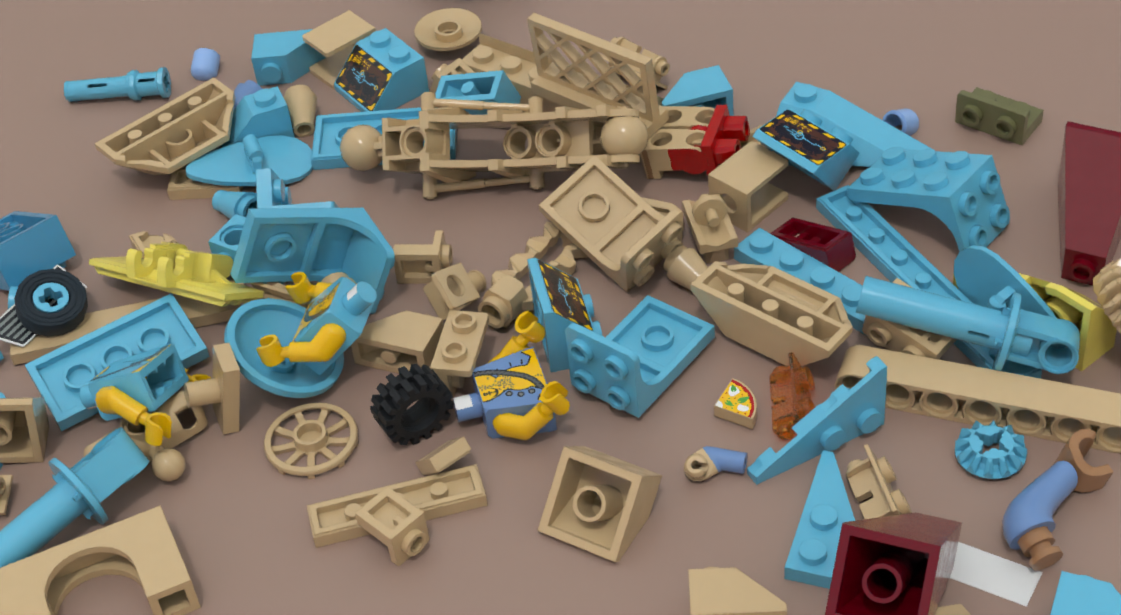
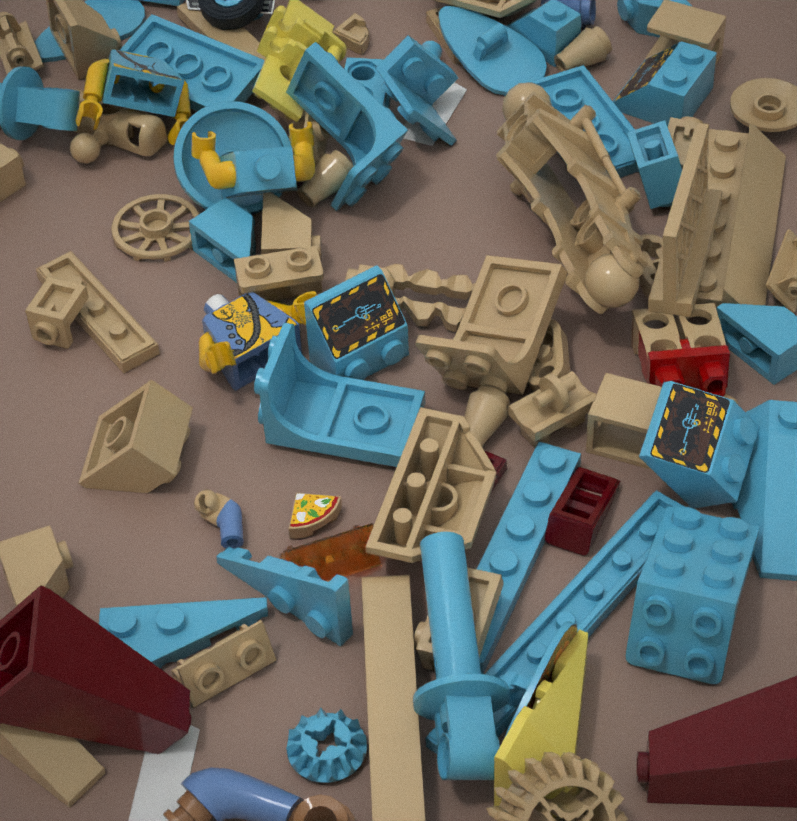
camera: 65 degrees right, 5 degrees up
(221, 390) = (160, 136): tan tile -> none
(364, 372) = (223, 235): none -> medium azure slope
(400, 392) = (194, 266): black tyre -> none
(419, 261) = (406, 218): tan bracket -> none
(443, 456) = (154, 316): tan tile -> none
(454, 289) = (363, 244): tan bracket -> none

